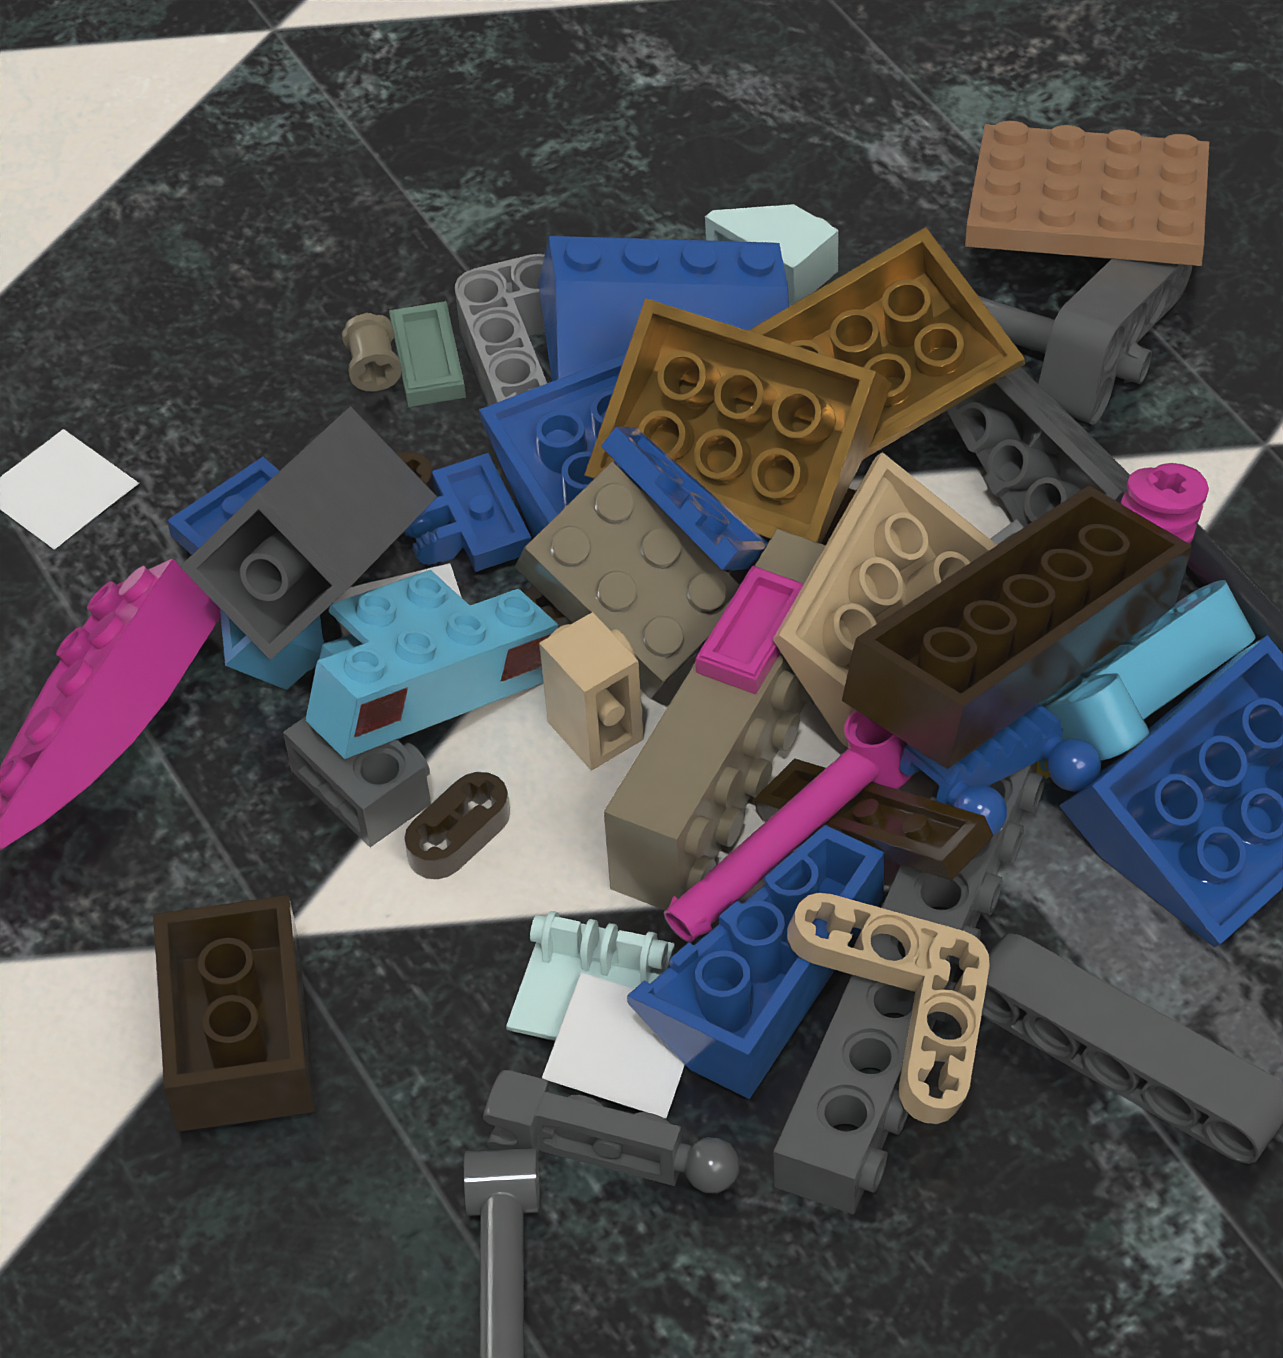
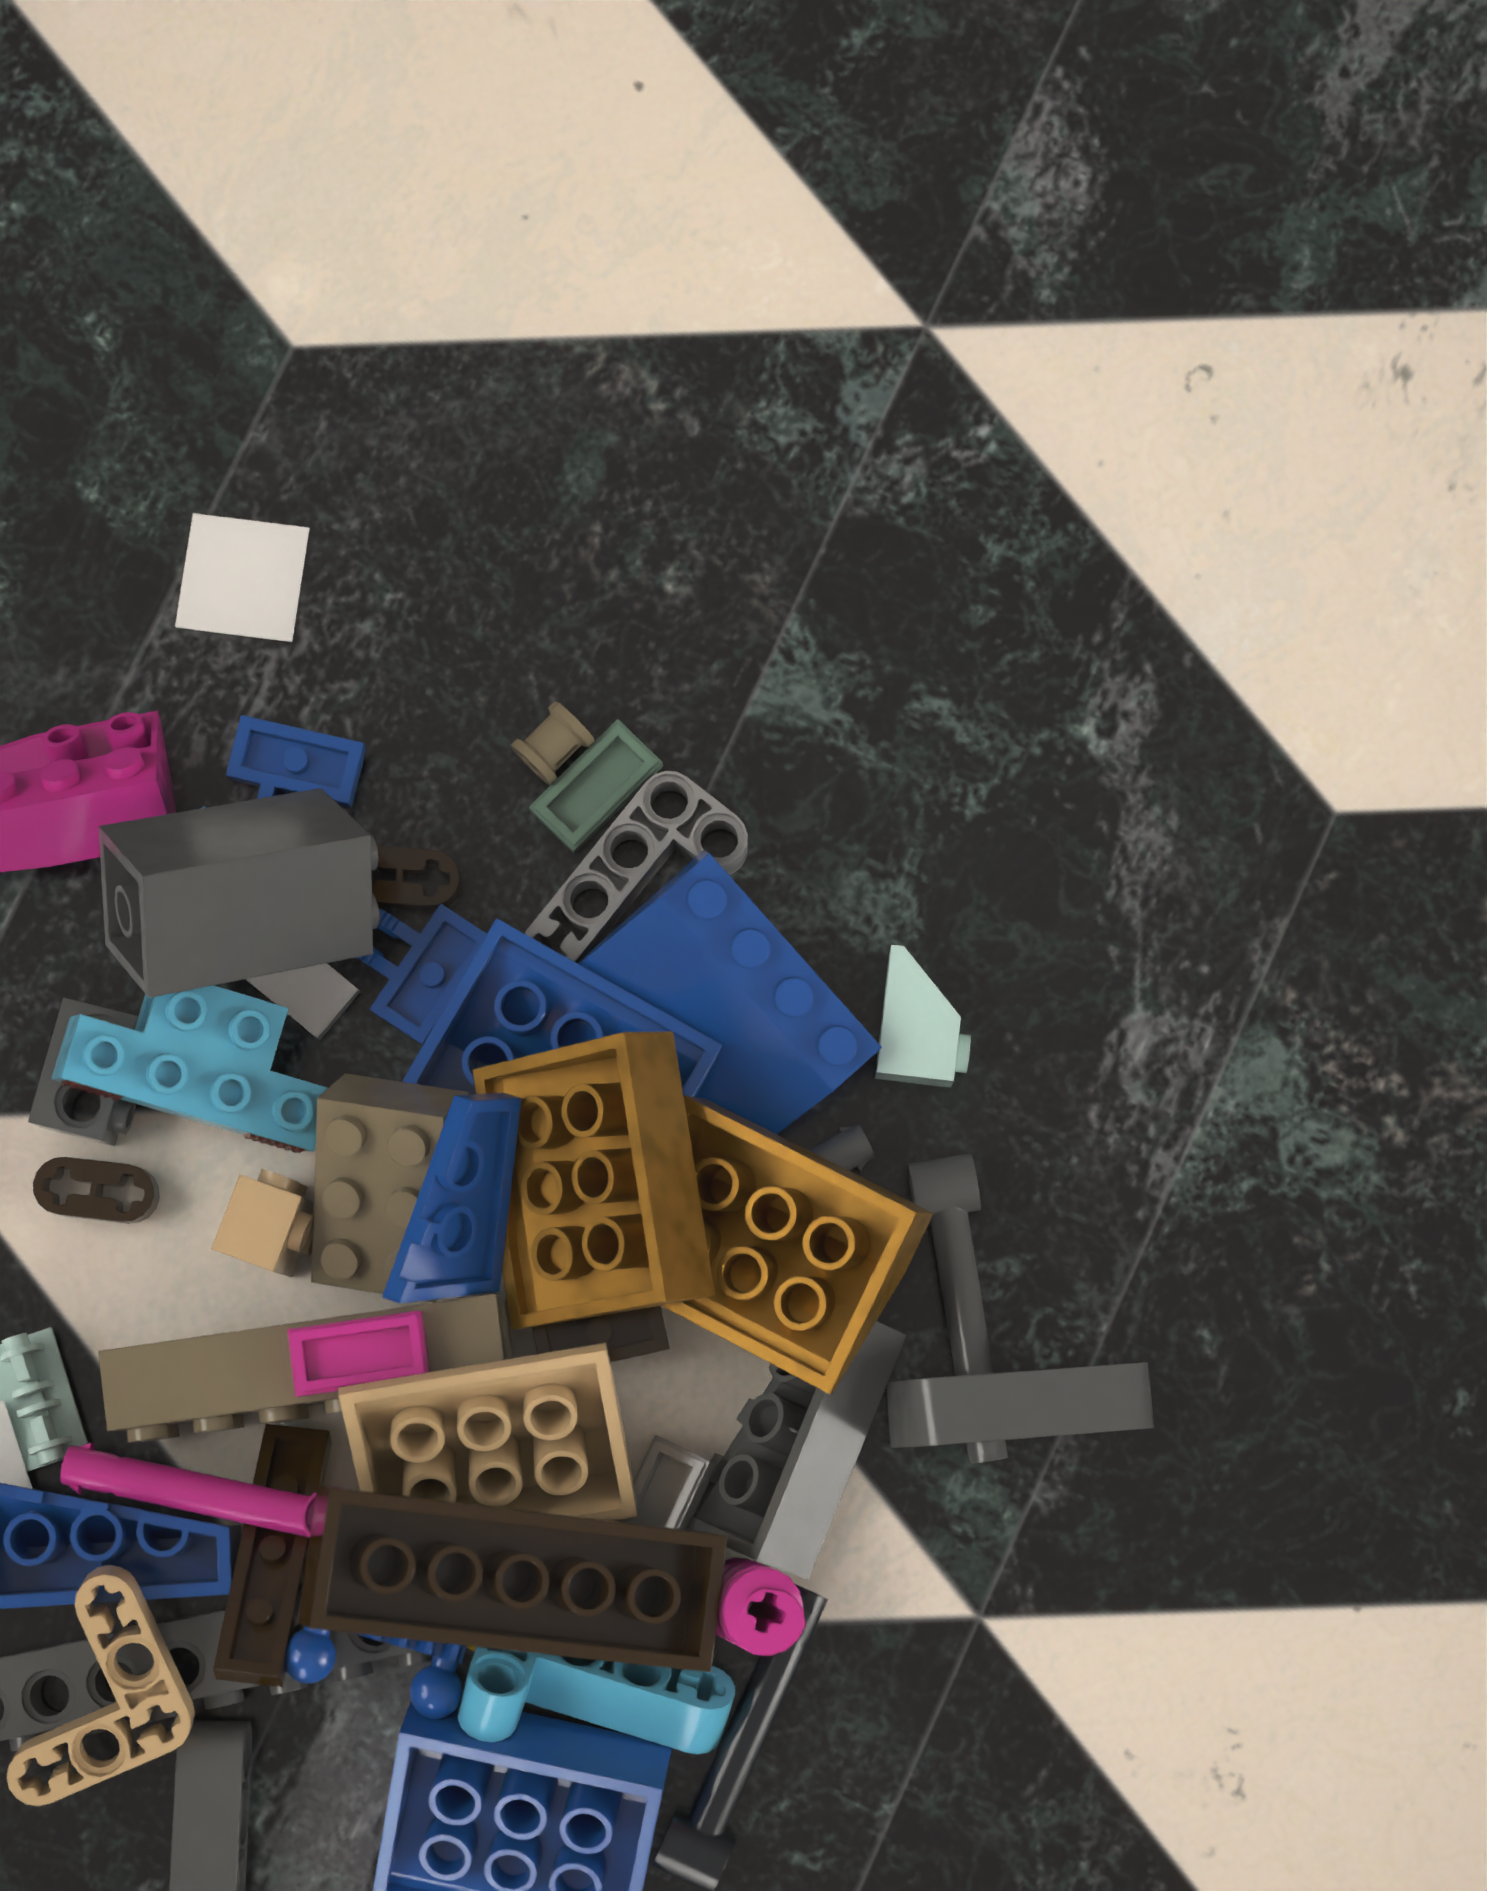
camera: 55 degrees right, 30 degrees up
(1090, 194) = (1169, 1284): medium nougat plate -> none

